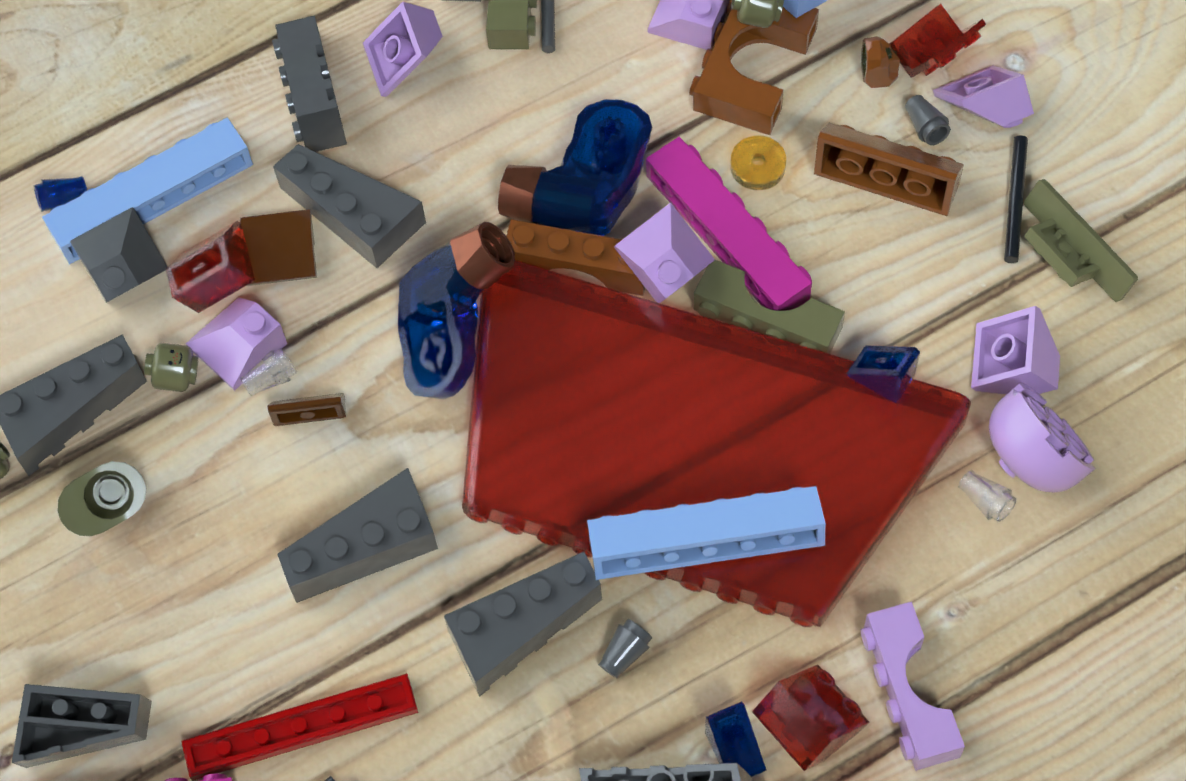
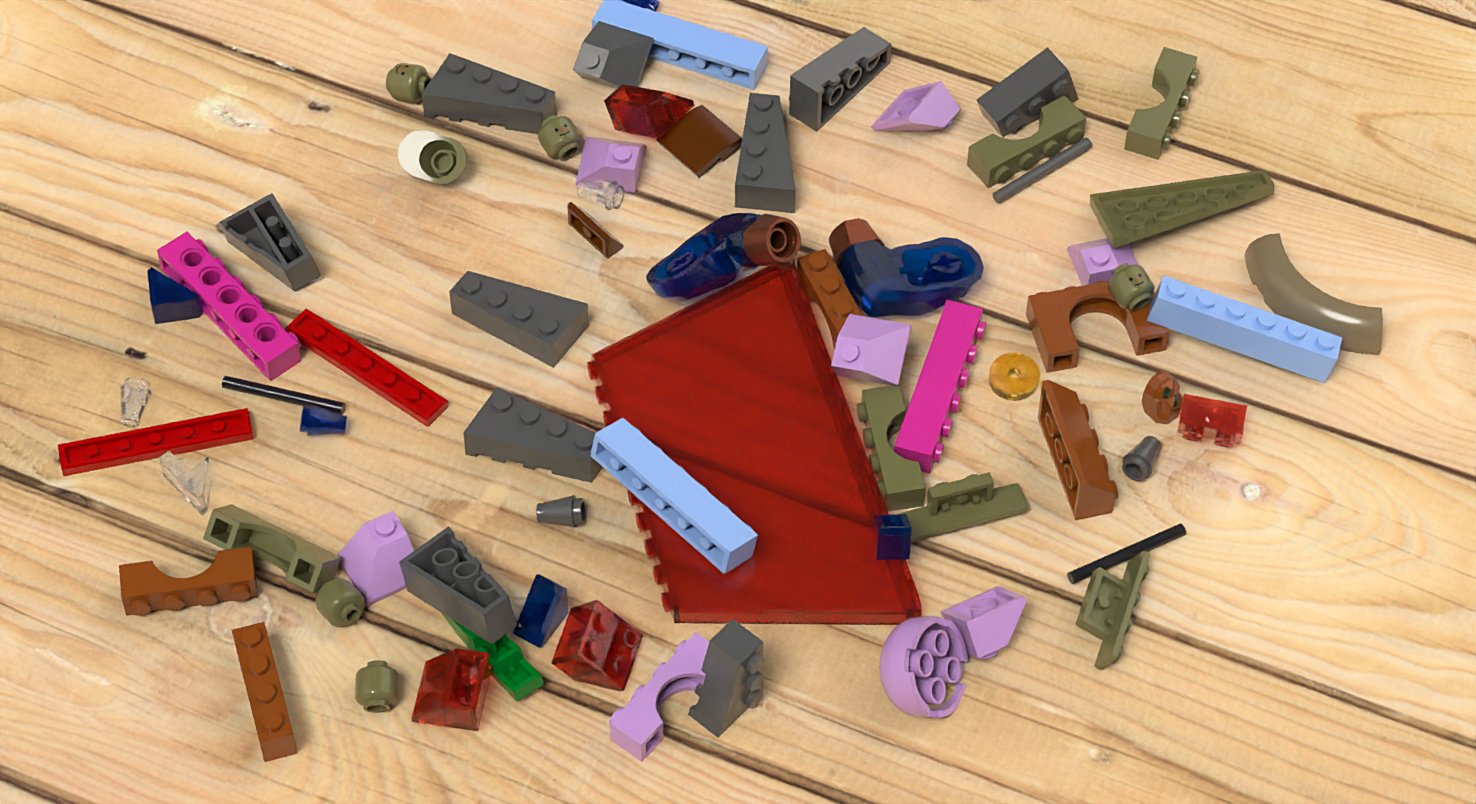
camera: 50 degrees right, 10 degrees down
(879, 294) = (964, 505): none -> olive bracket
(950, 617) = (731, 680): none -> dark grey wedge
(990, 94) = (1194, 484): lavender slope -> none
(990, 497) = (856, 667): clear cone -> none

